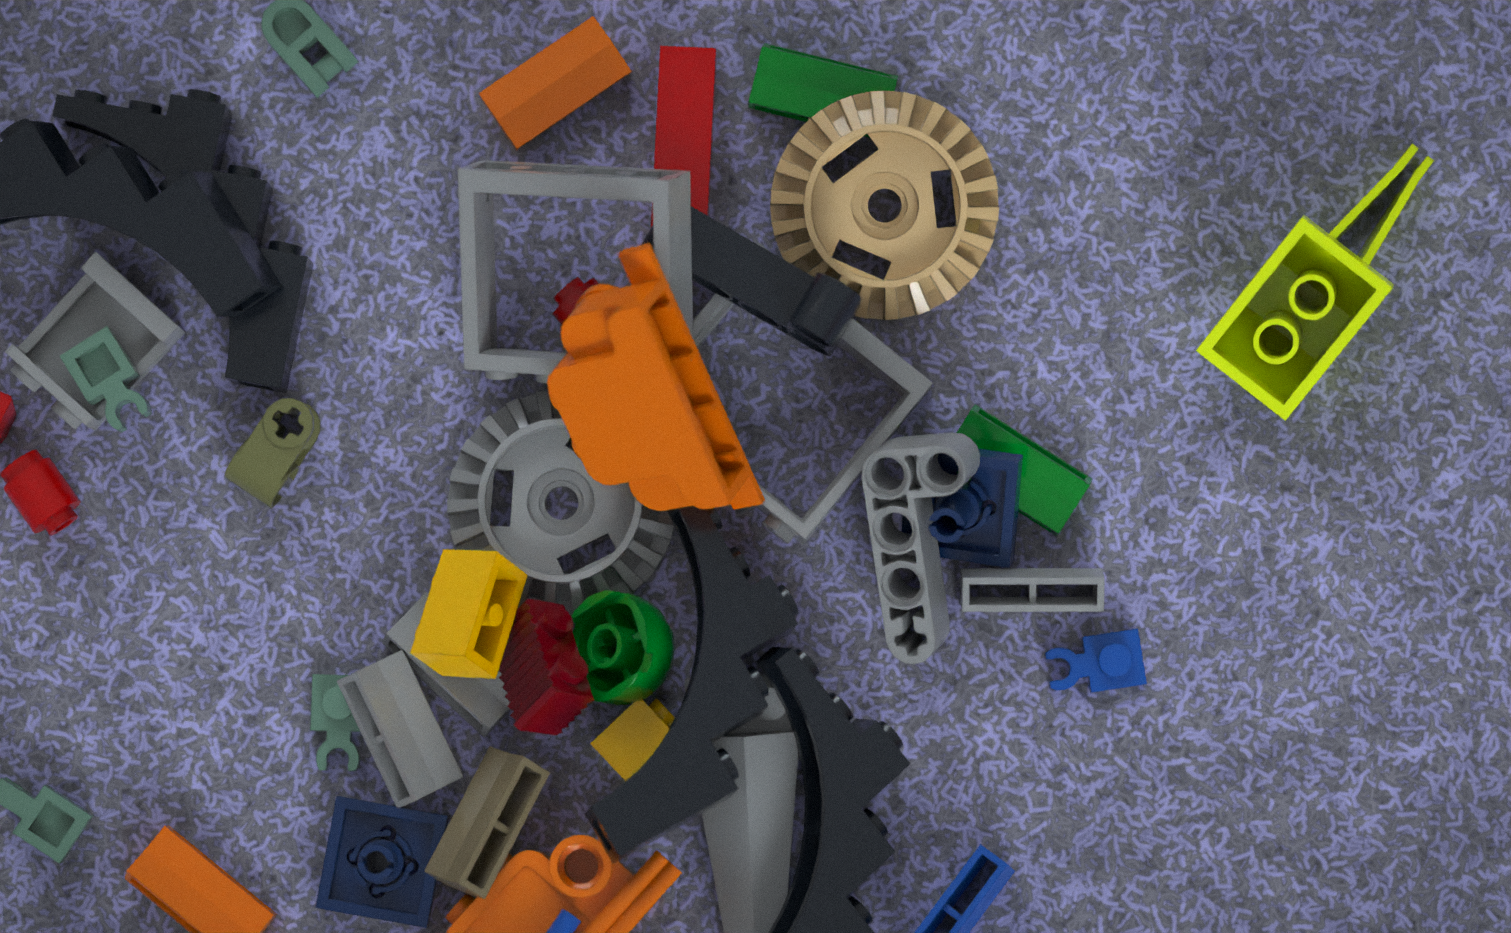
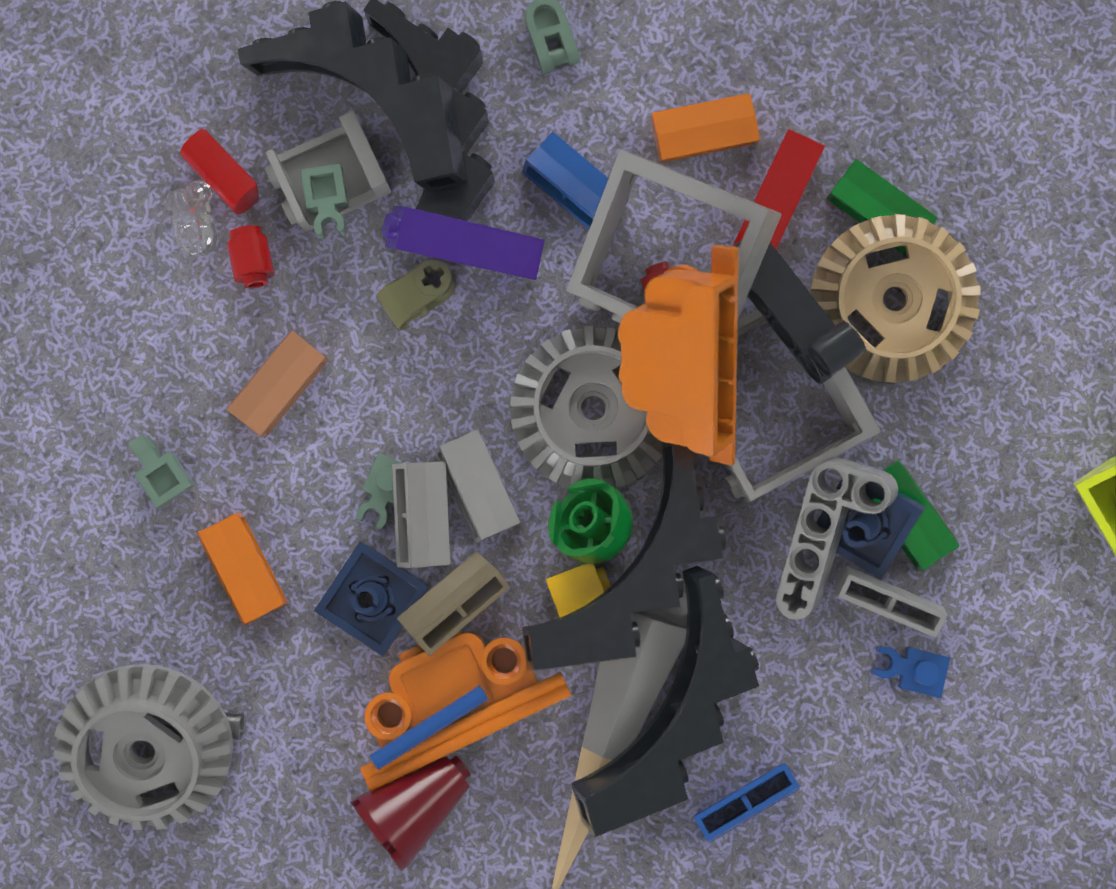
camera: 25 degrees right, 0 degrees up
(144, 641) = (277, 384): none -> nougat piece
(309, 365) = (462, 242): none -> dark purple brick
(404, 221) = (566, 178): none -> blue piece
(469, 613) = (500, 456): yellow brick -> none
(544, 669) = (534, 513): dark red brick -> none

